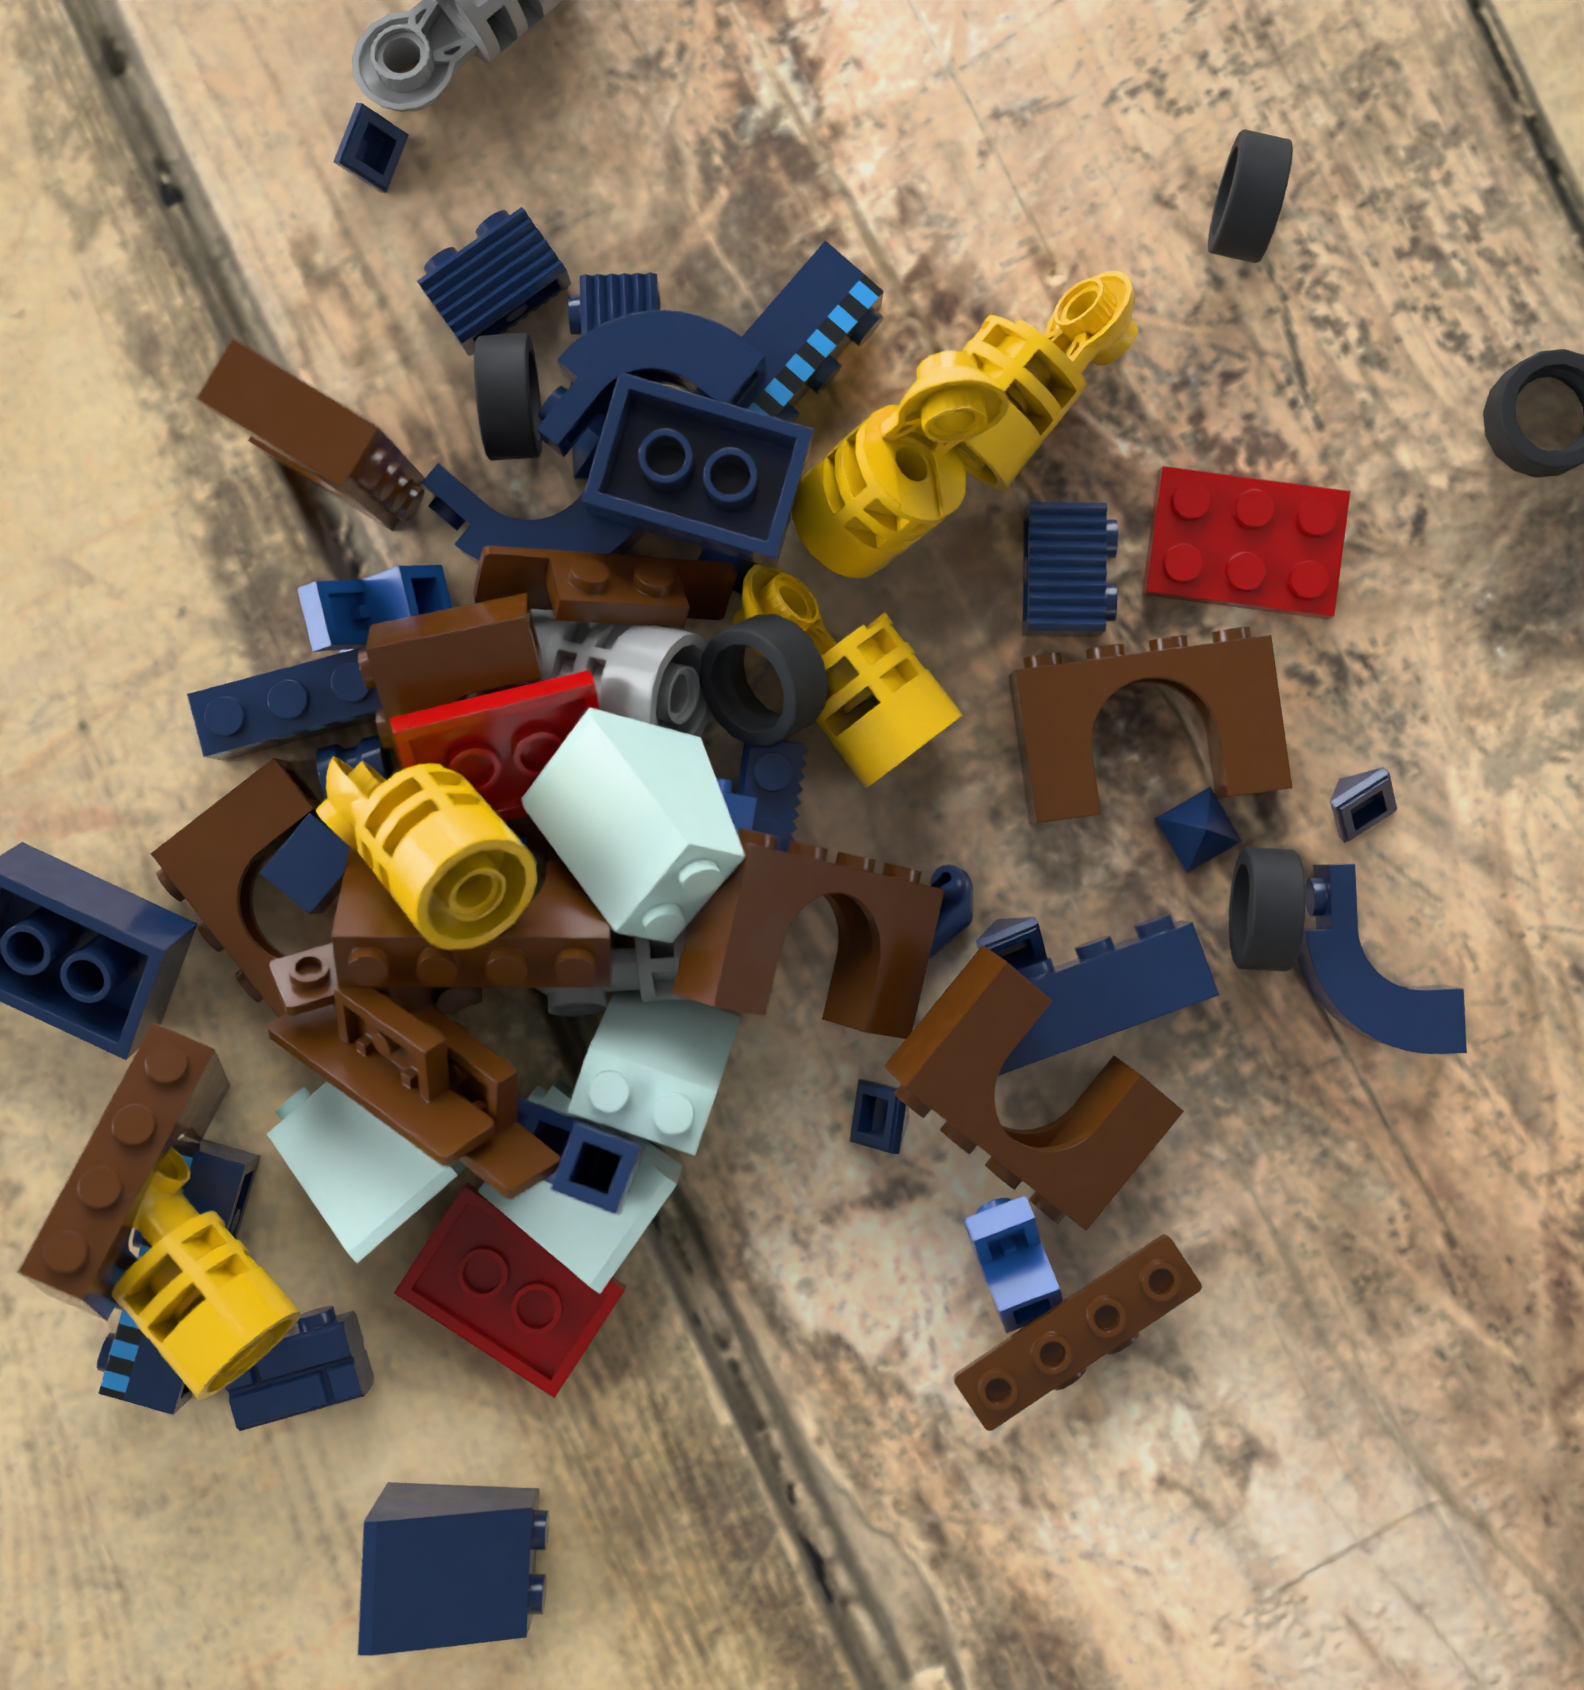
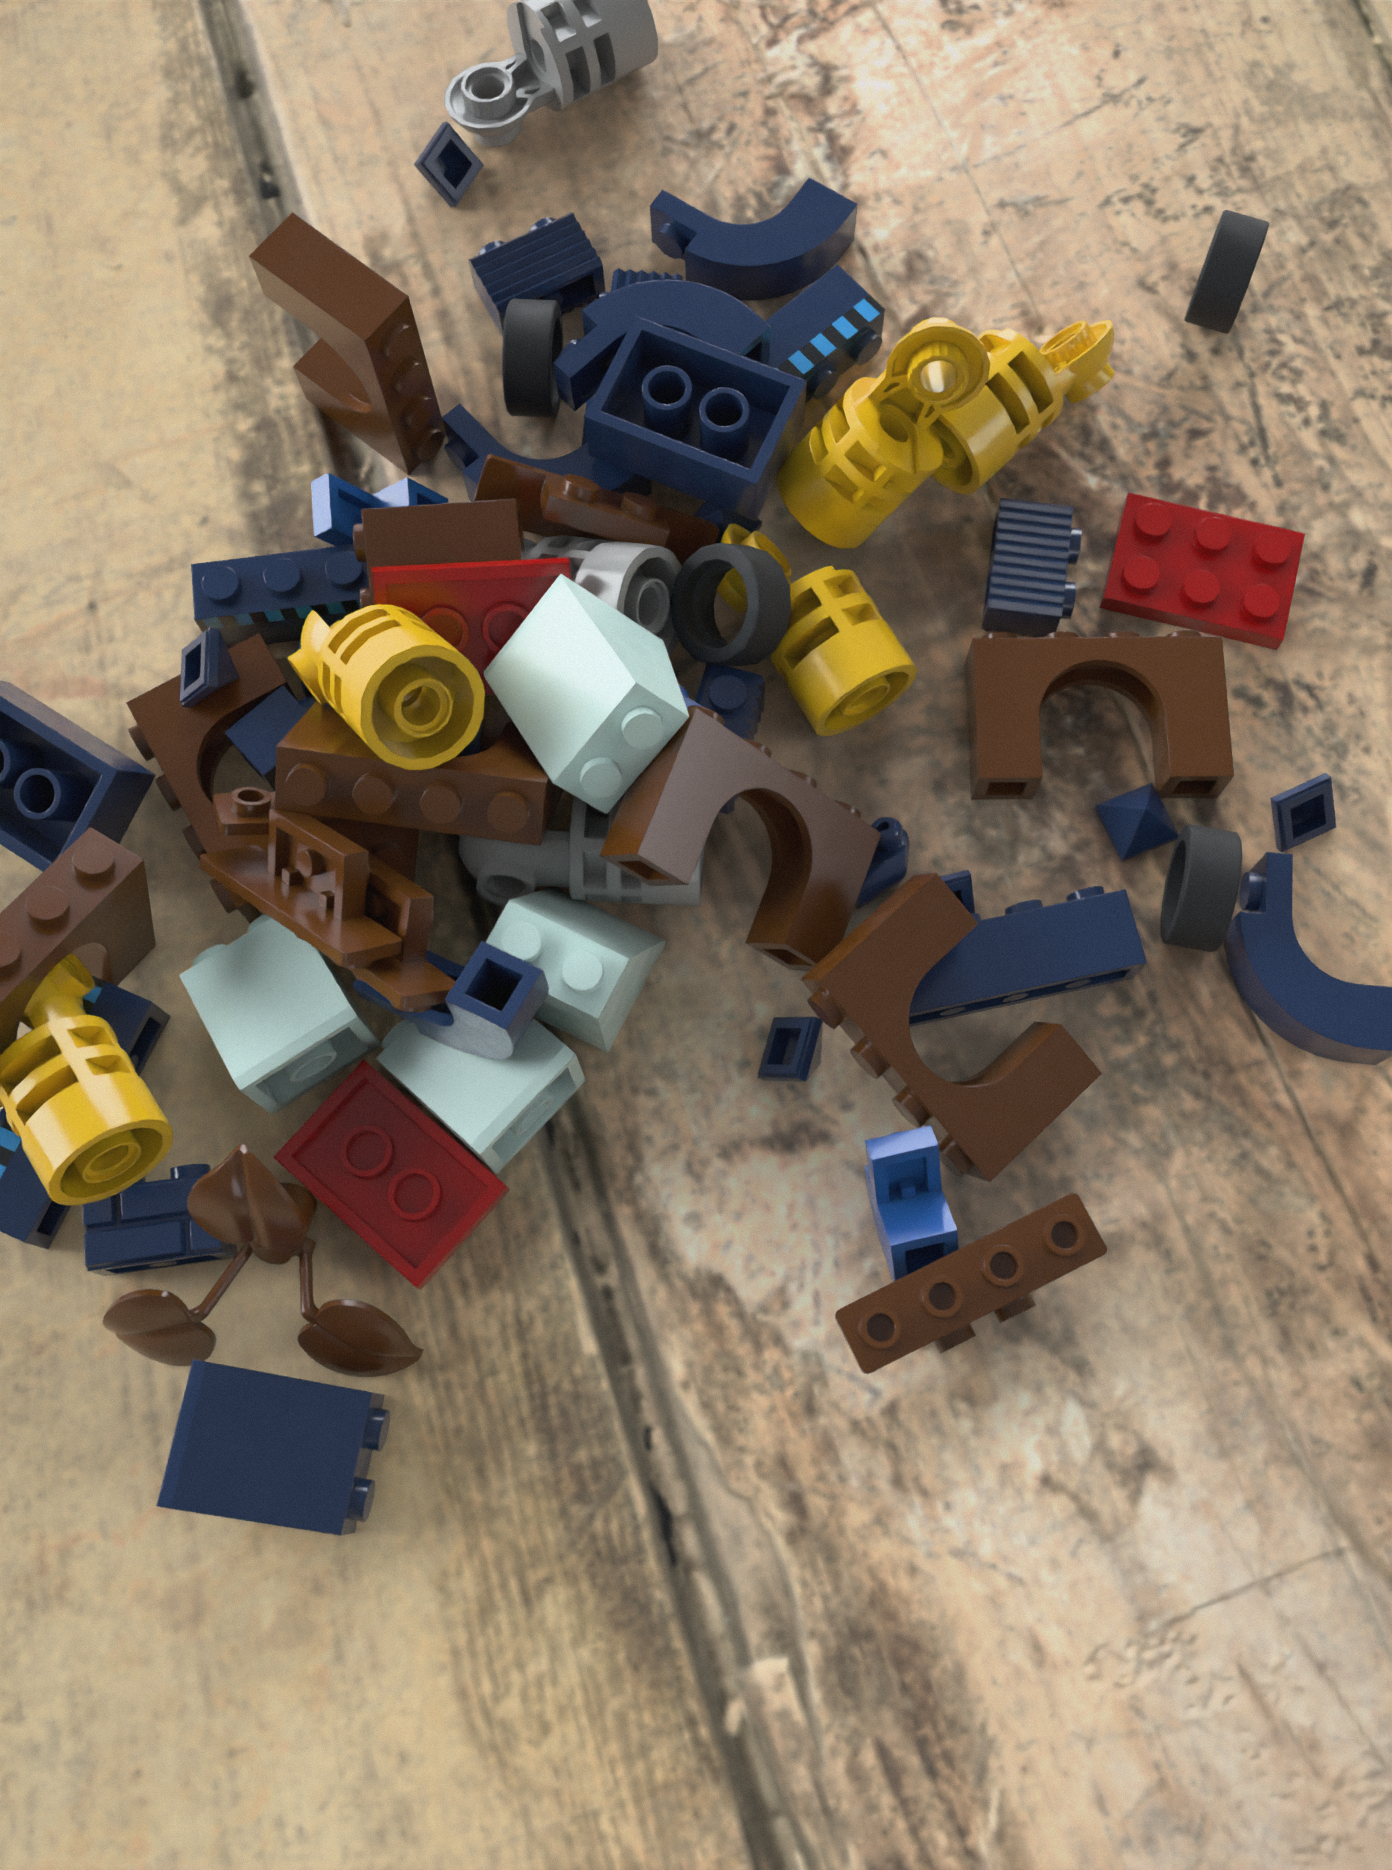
camera: 10 degrees right, 15 degrees down
(227, 814) = (205, 668): none -> dark blue slope
(410, 1378) = (271, 1219): none -> reddish brown plant
(735, 230) = (758, 257): none -> dark blue arch

